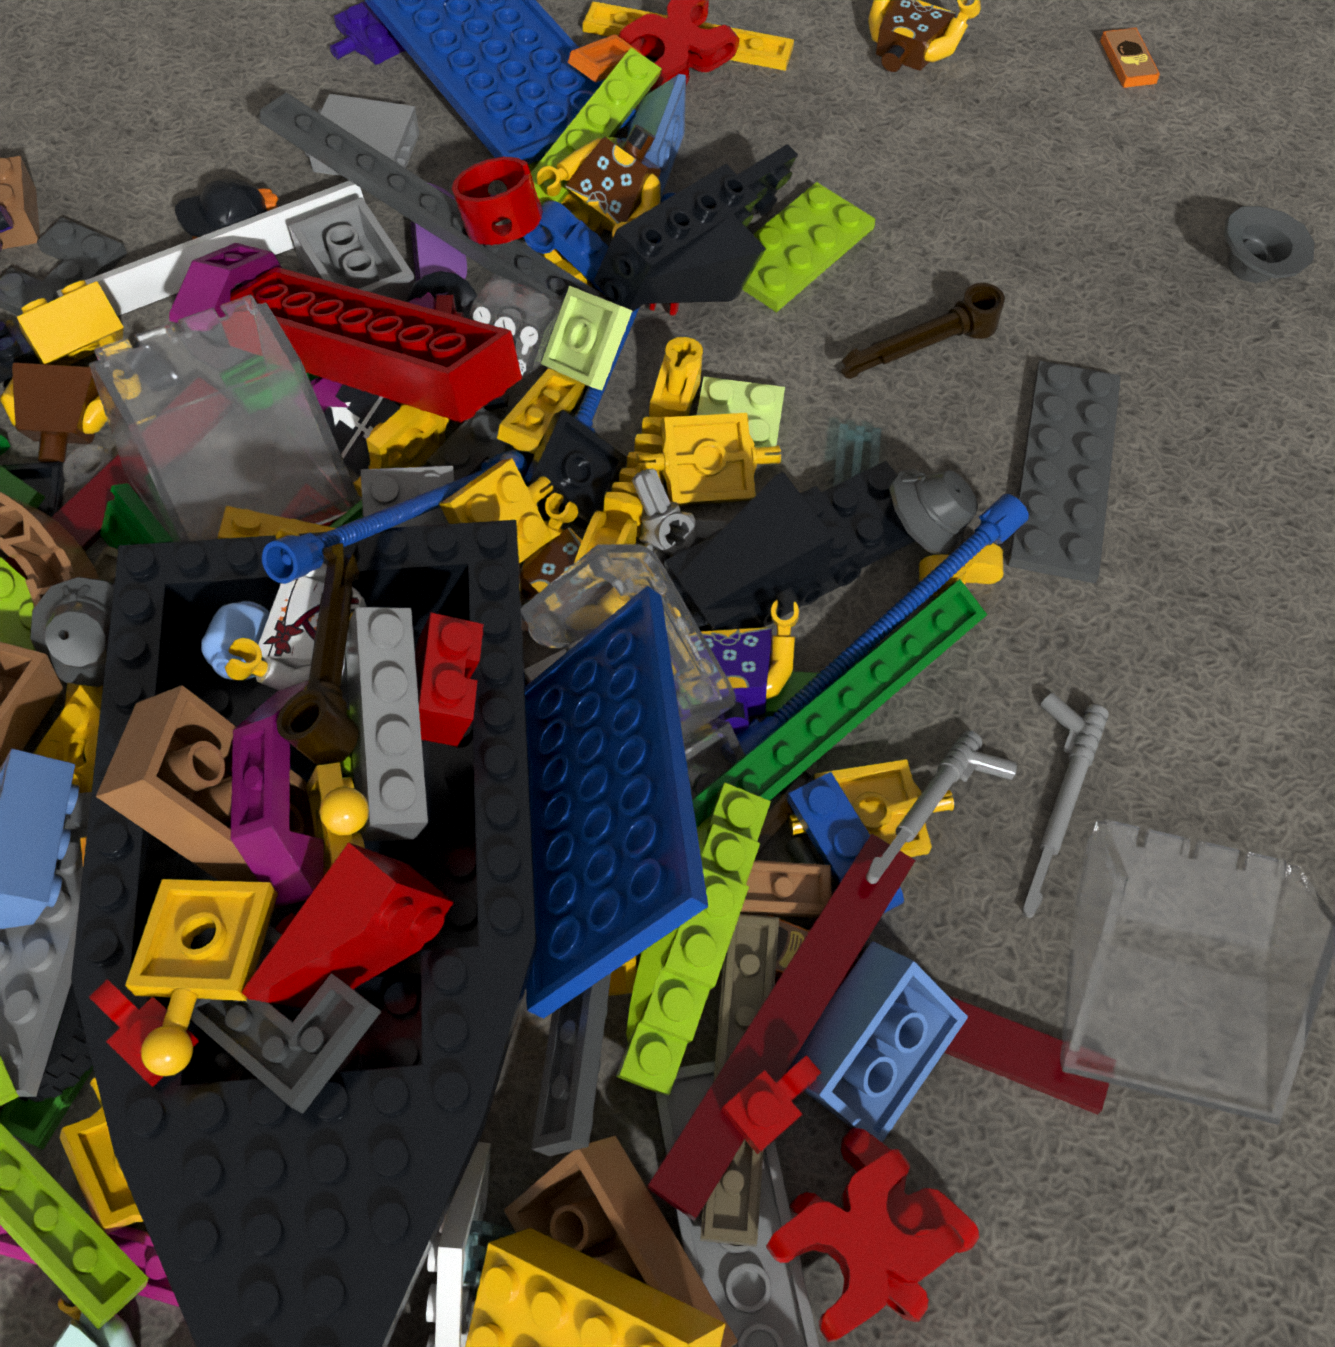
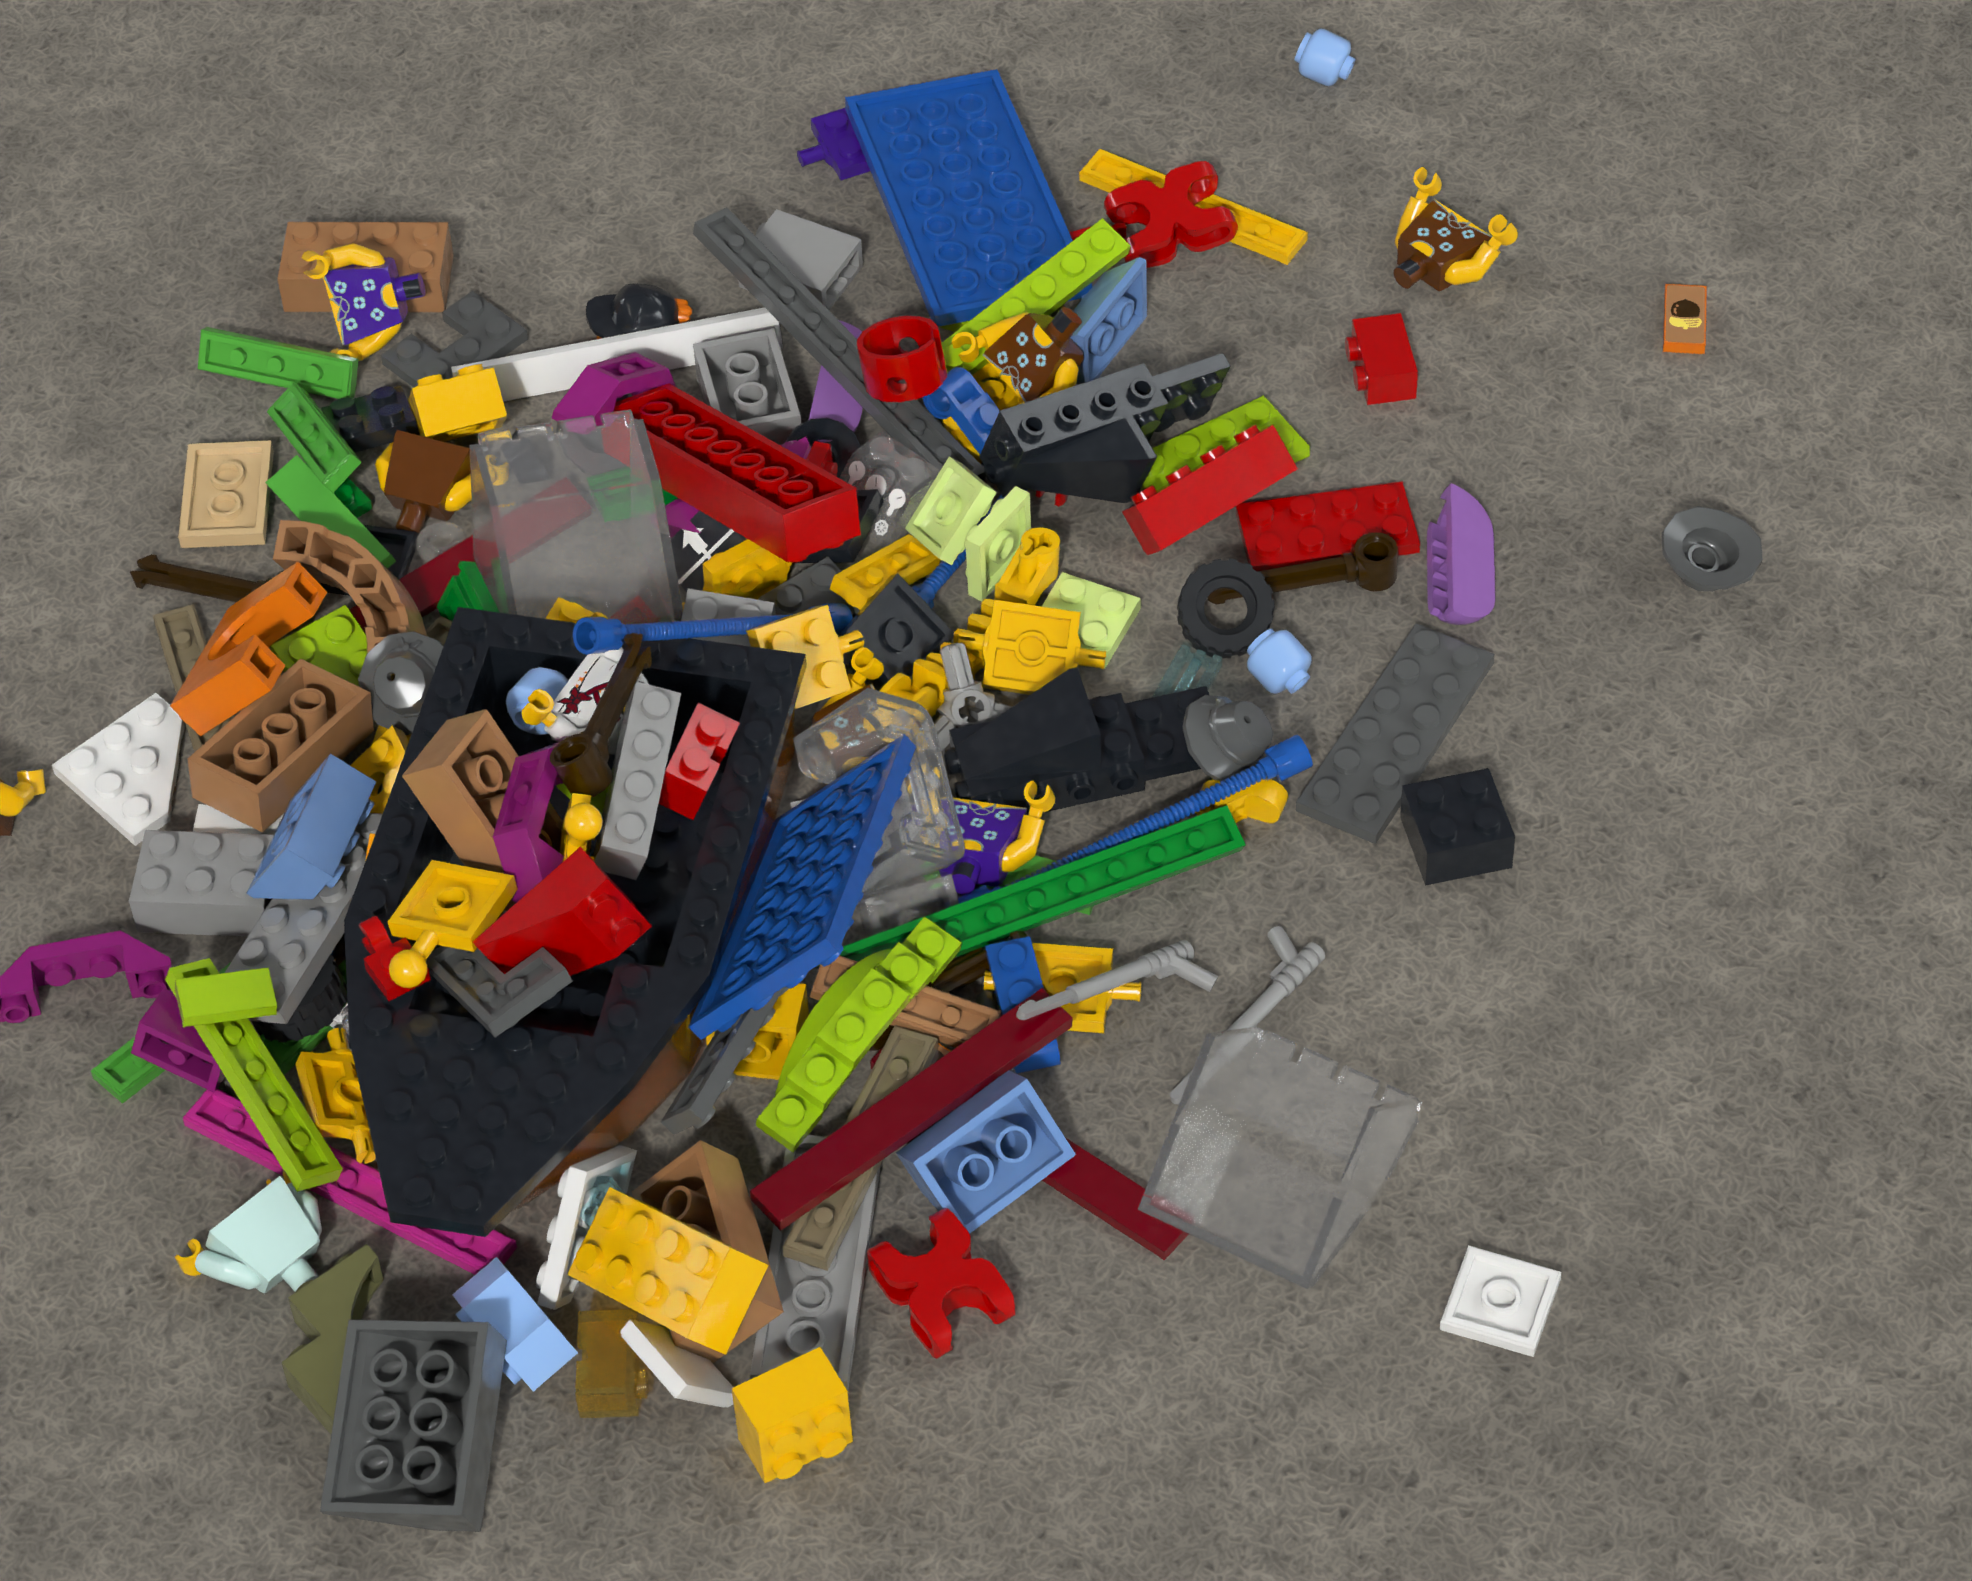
camera: 20 degrees right, 10 degrees down
(599, 57) = (1072, 219): orange tile -> none
(639, 360) = (995, 542): none -> yellowish green plate
(766, 1106) = (866, 1160): red plate -> none
(811, 273) = (1209, 489): none -> red brick
(864, 1244) = (909, 1272): red piece -> none
(900, 364) = (1224, 575): none -> black tyre
(907, 131) = (1382, 359): none -> red brick
(914, 288) = (1324, 524): none -> red plate
(937, 422) = (1279, 661): none -> light blue head
(1051, 296) = (1460, 560): none -> medium lavender brick
(1174, 551) = (1457, 826): none -> black brick

